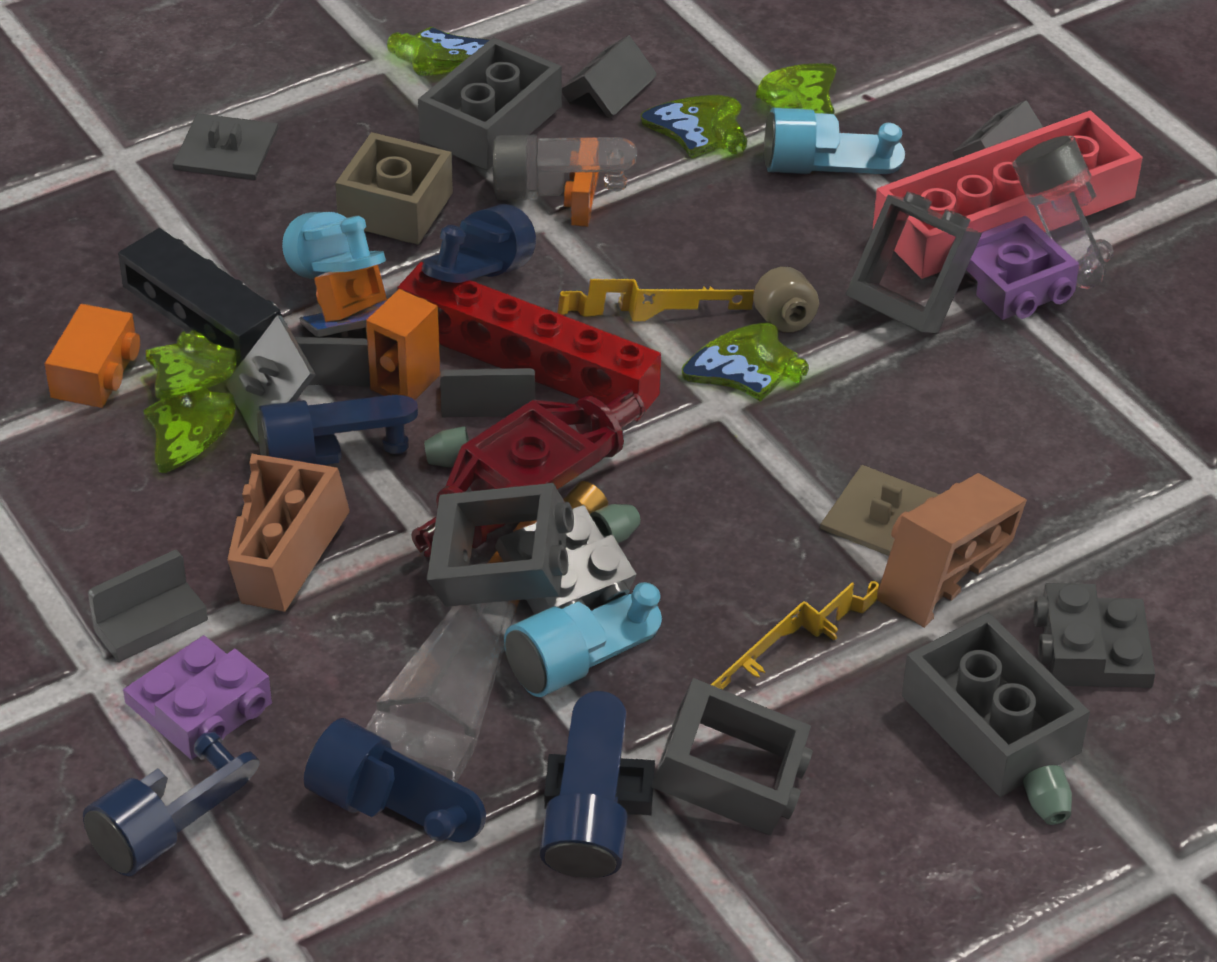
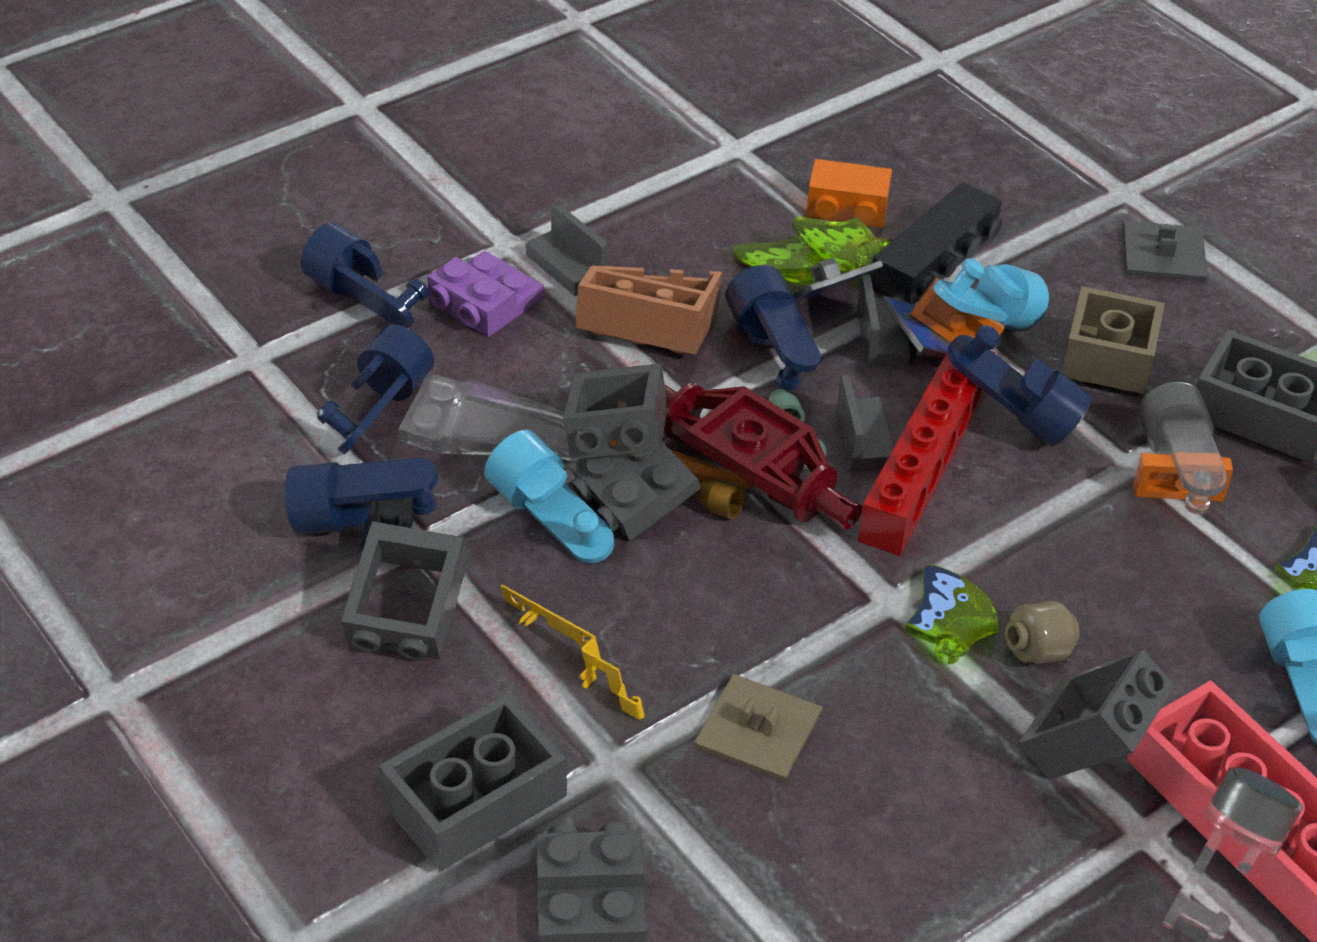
camera: 85 degrees right, 0 degrees up
(403, 346) = (882, 353): orange brick -> none
(617, 520) = (703, 519): sand green hose -> none
(632, 299) = (1010, 531): yellow piece -> none
(944, 542) = (699, 755): nougat wedge -> none
(1021, 269) = (1147, 832): medium lavender plate -> none
(1049, 793) = (378, 838): sand green hose -> none

